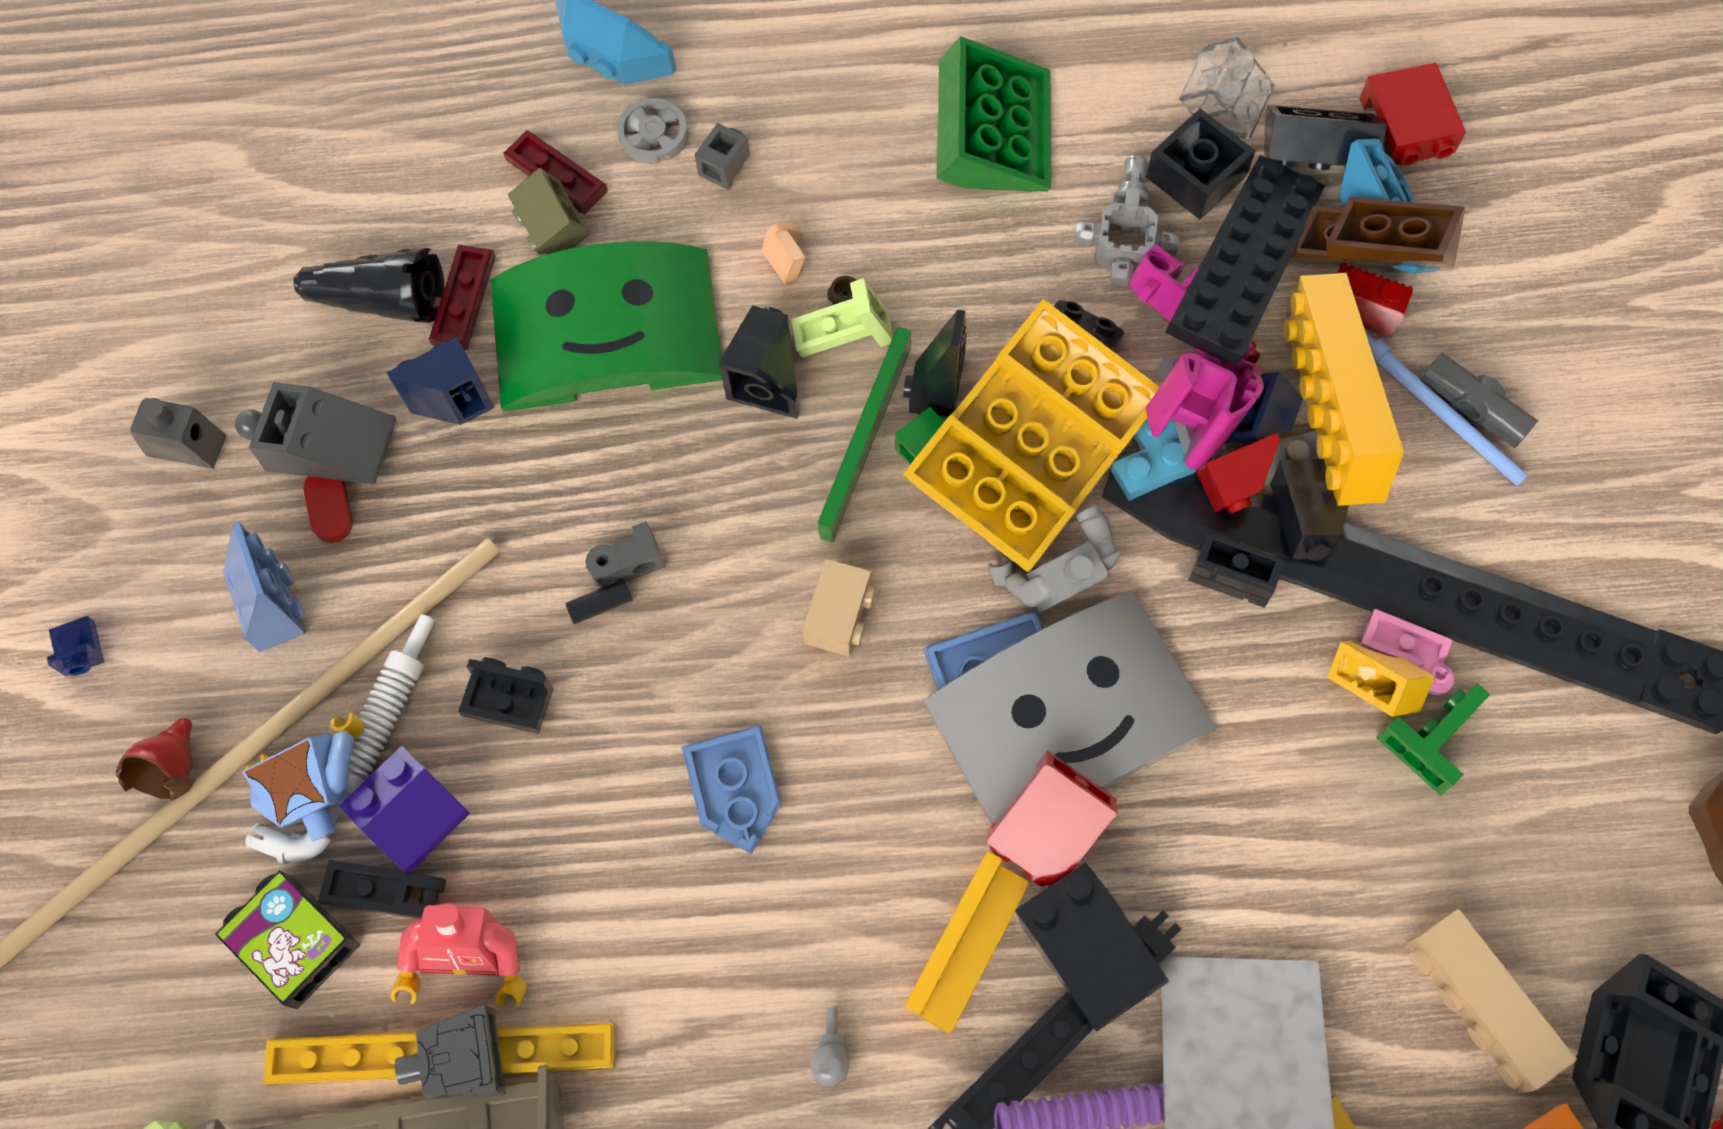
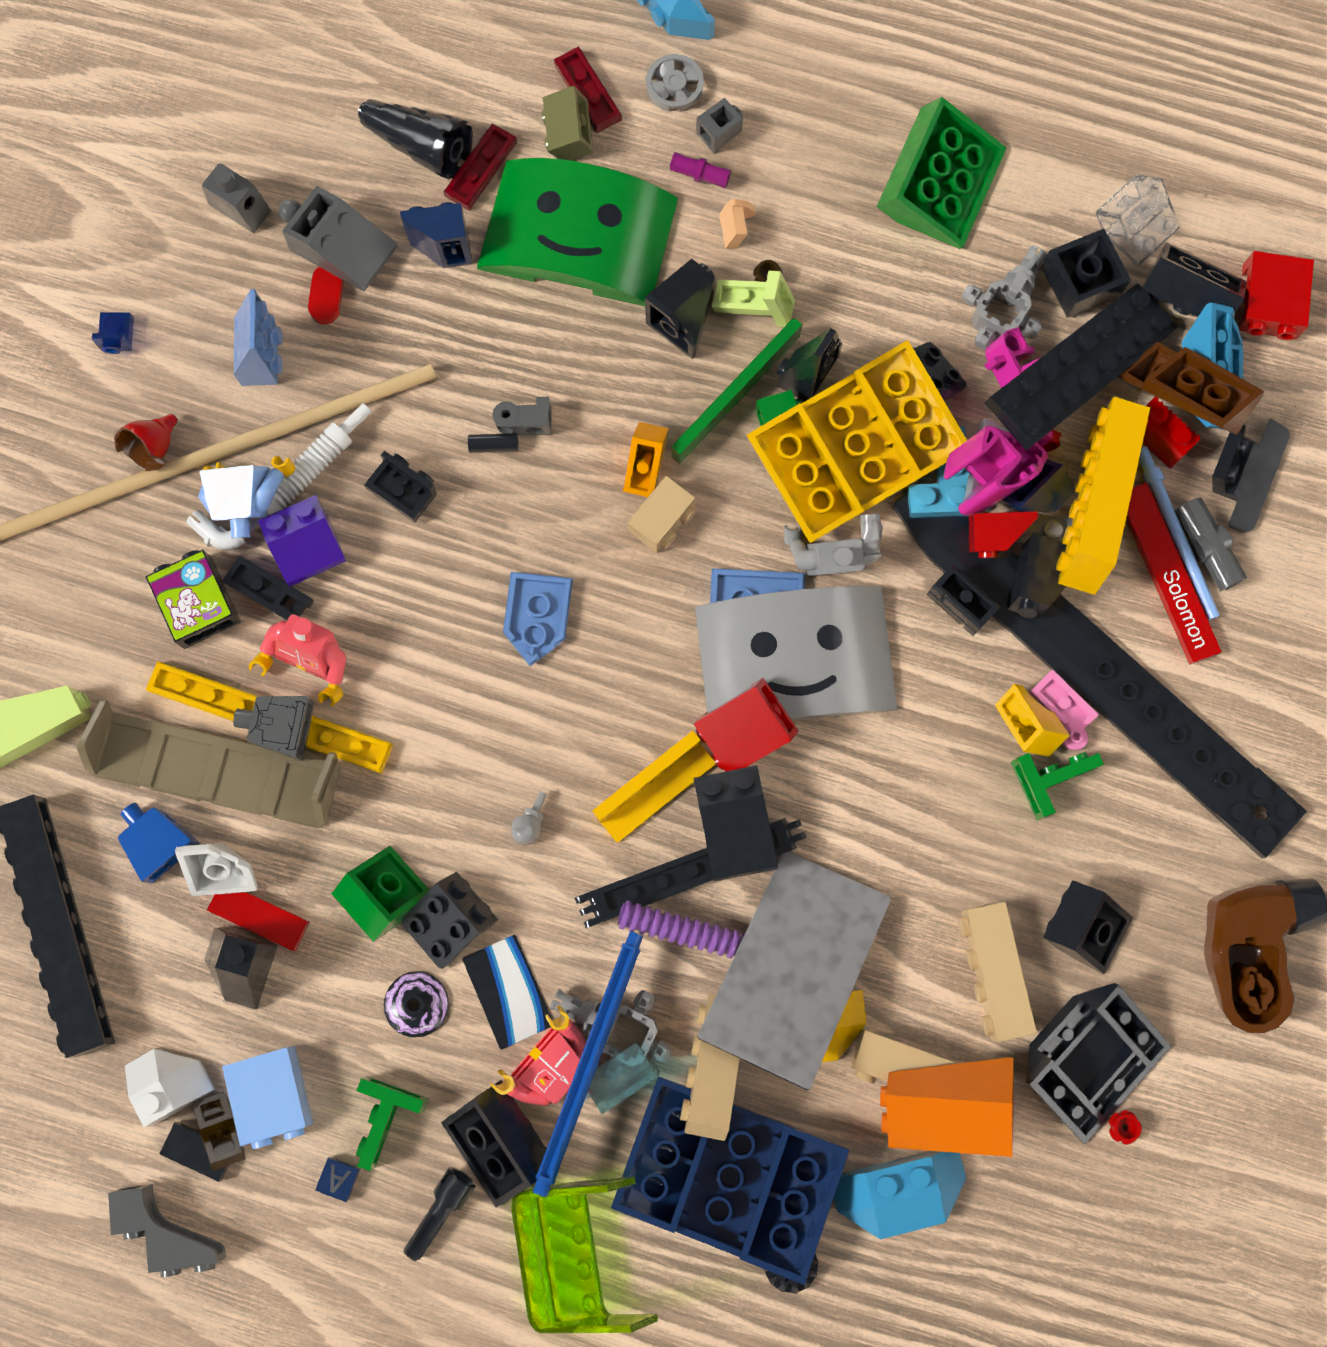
camera: 20 degrees right, 10 degrees up
(720, 210) = (700, 170): none -> magenta pin
(791, 551) = (645, 459): none -> light orange slope
(1462, 462) = (1170, 577): none -> red tile
(1479, 309) = (1247, 472): none -> black plate
(1565, 898) = (1088, 926): none -> black slope

